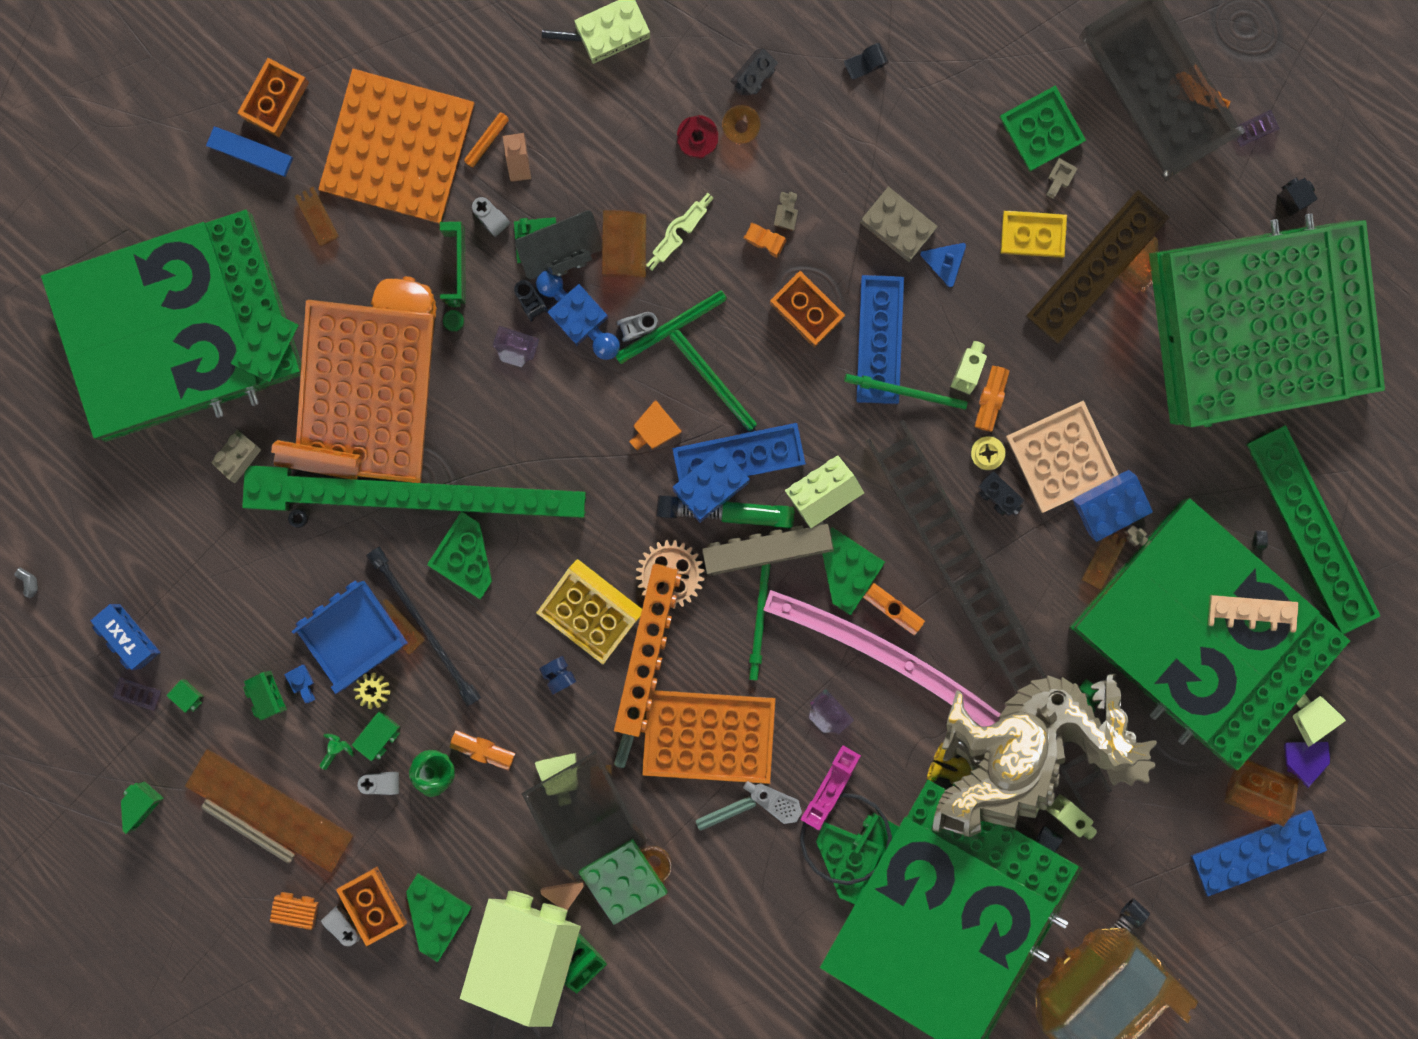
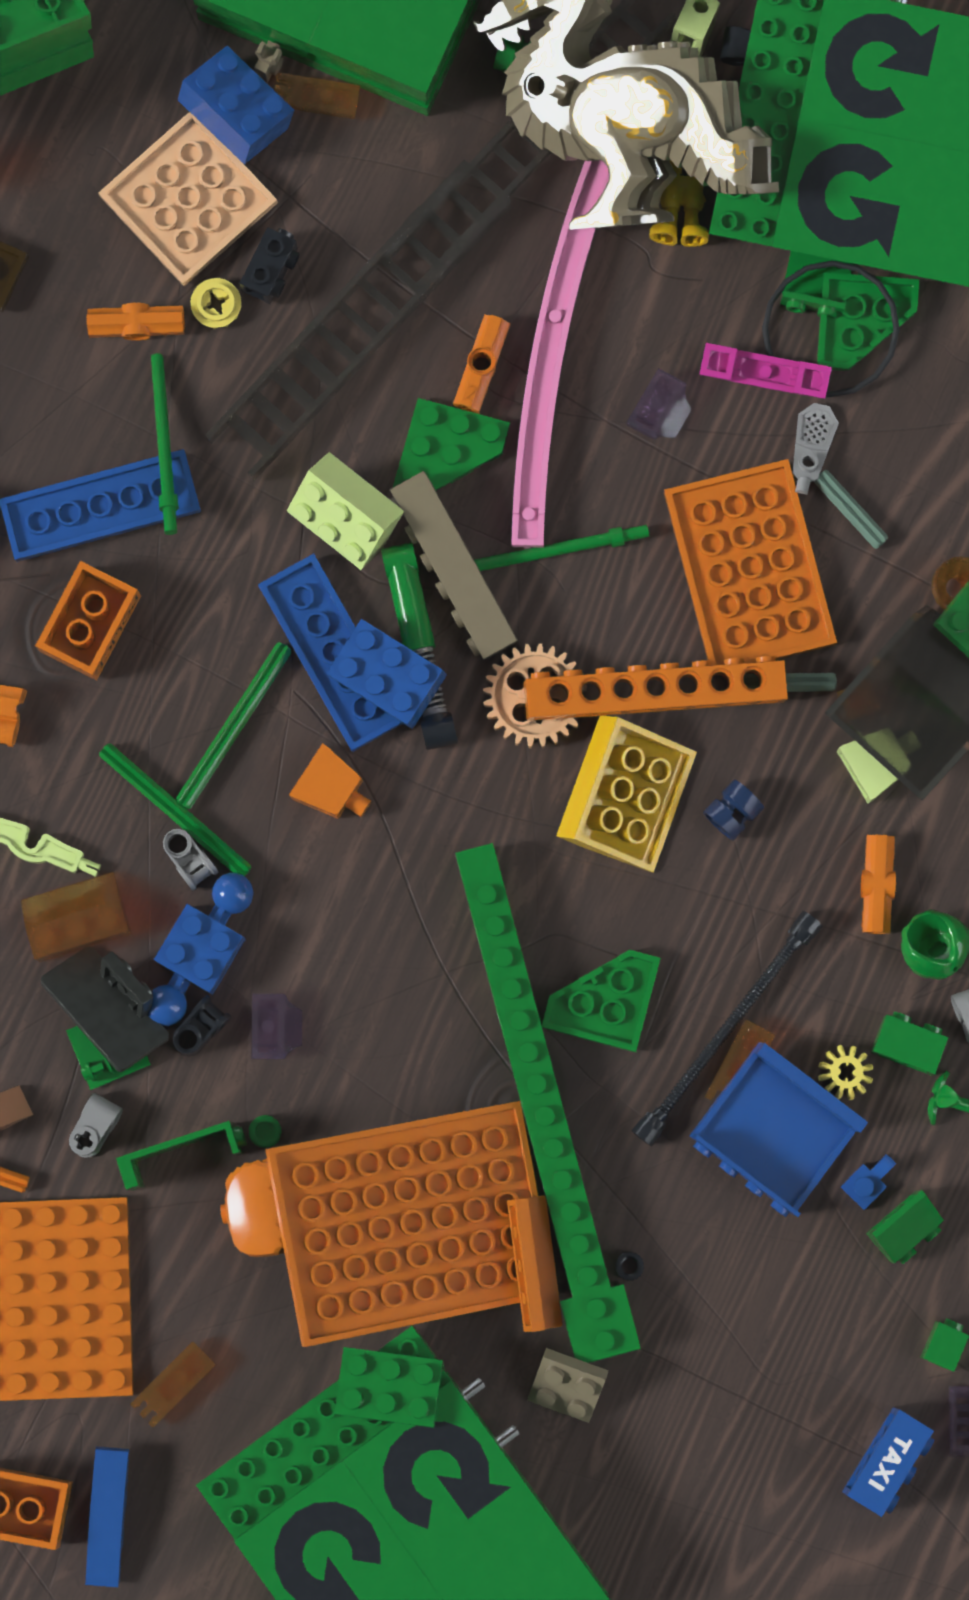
camera: 105 degrees left, 5 degrees down
(969, 368) = (103, 364): yellowish green torso -> none

